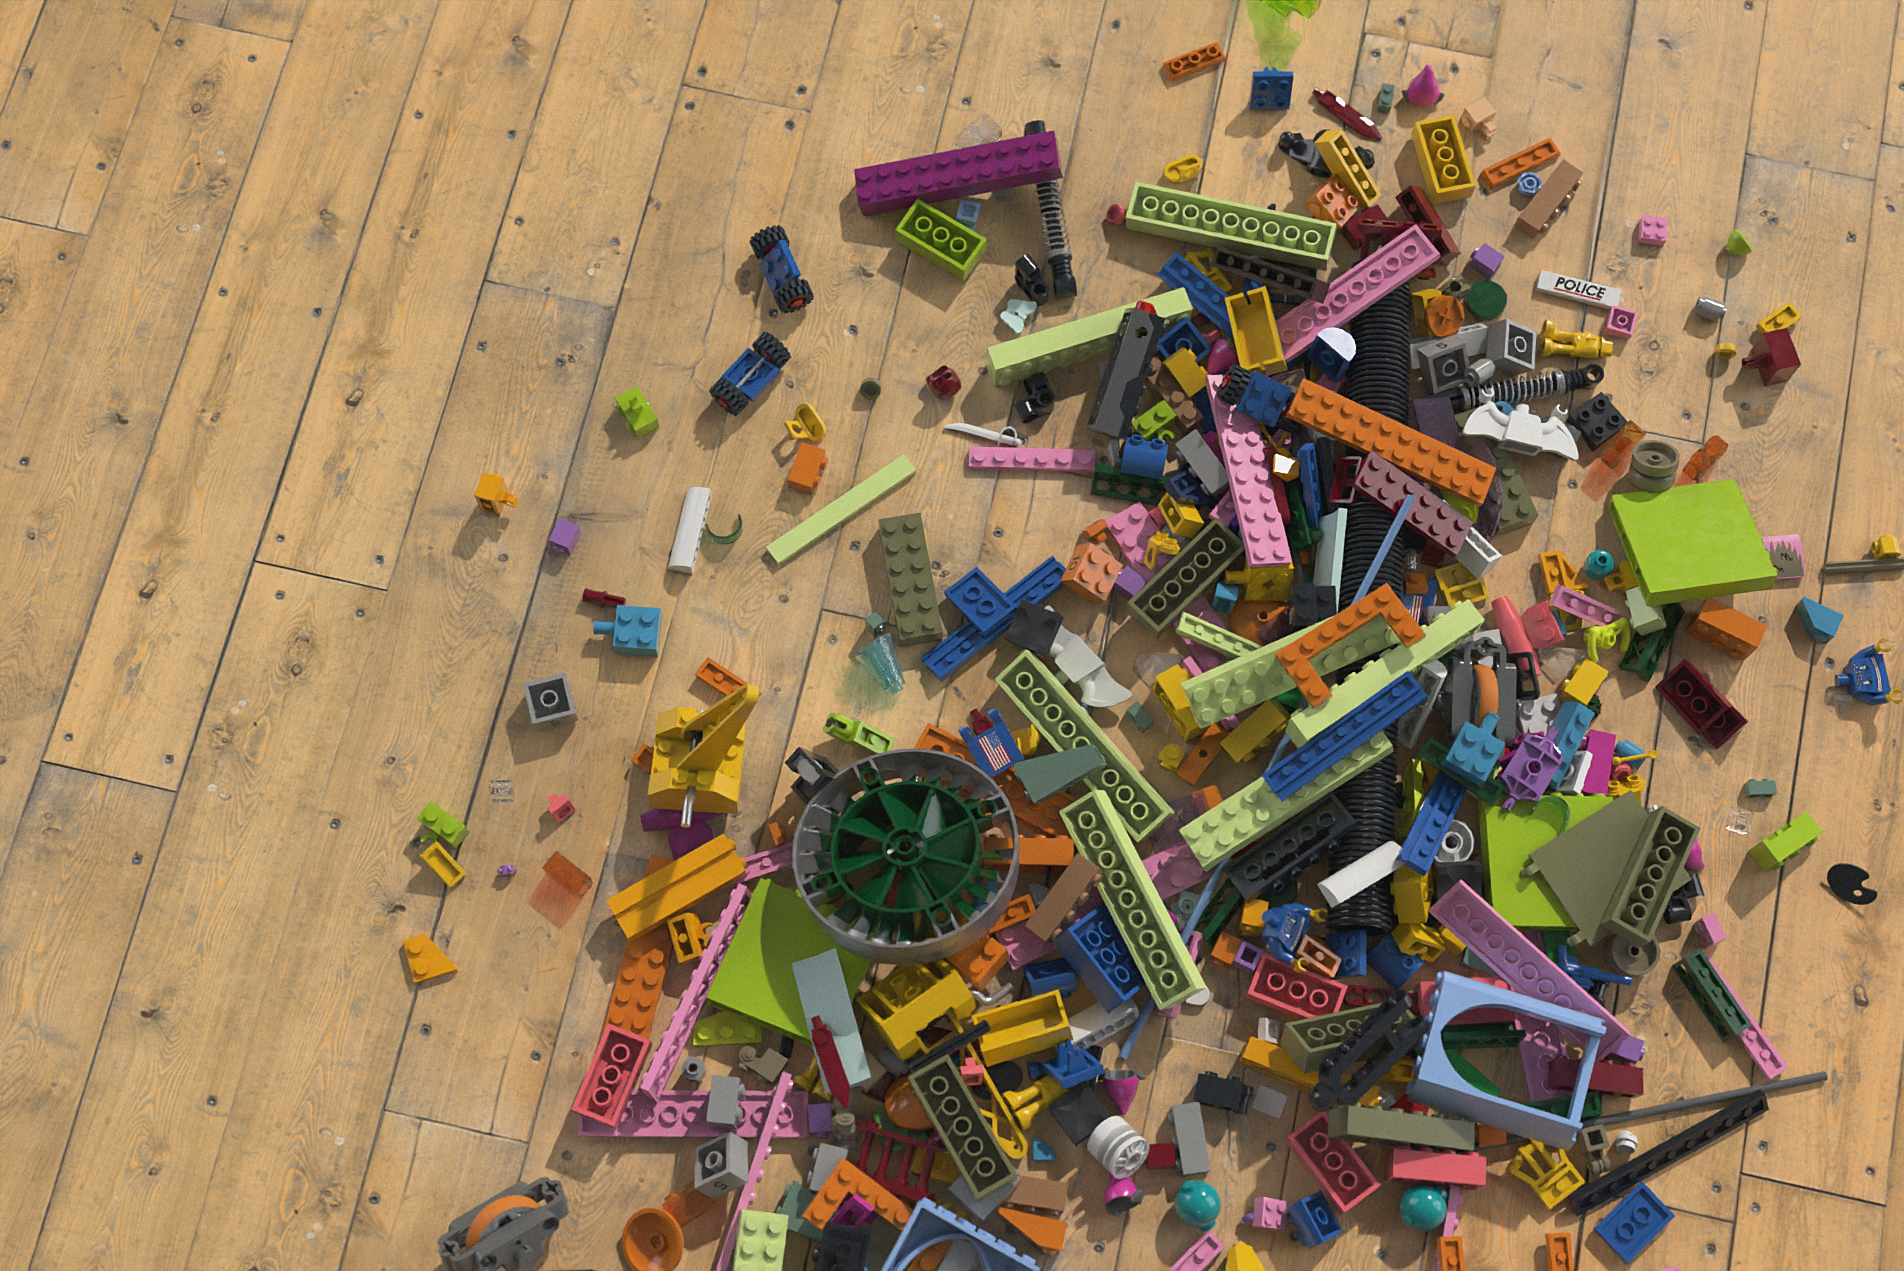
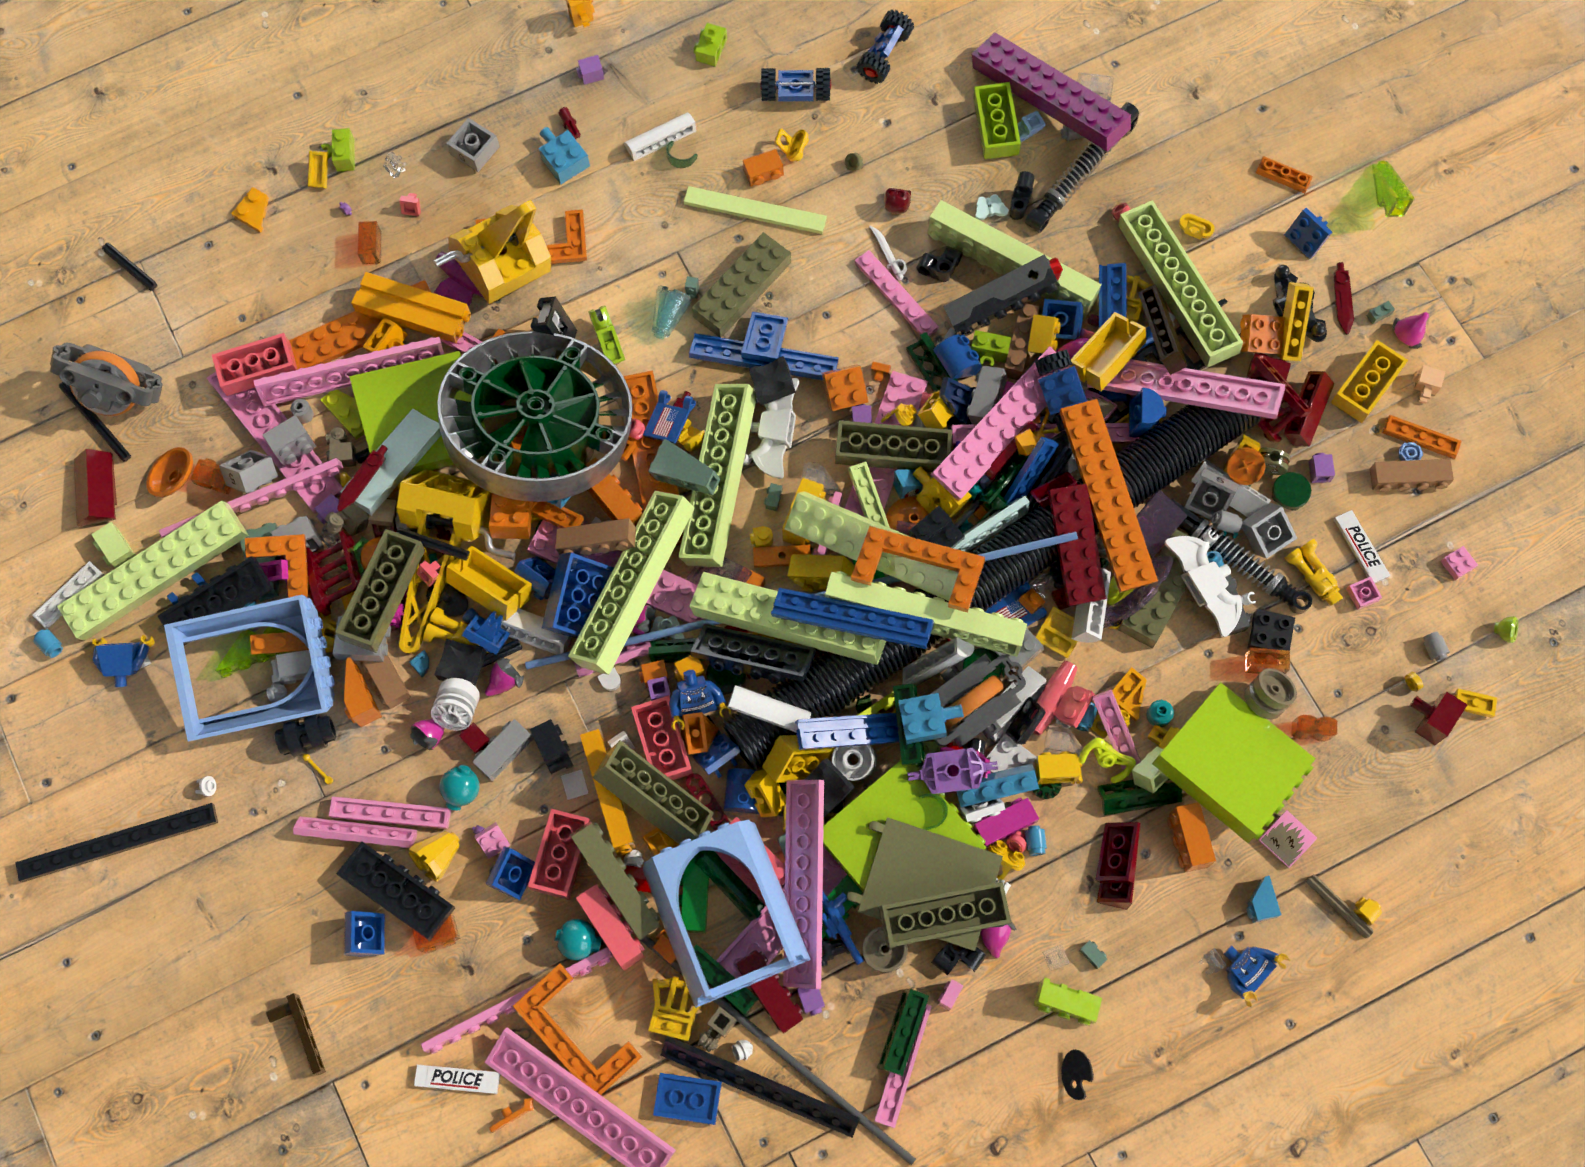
camera: 55 degrees right, 0 degrees up
(383, 1123) = (129, 266): none -> black axle
(1341, 1058) = (590, 803): black piece -> none
(1652, 755) = (1046, 854): yellow hinge -> none

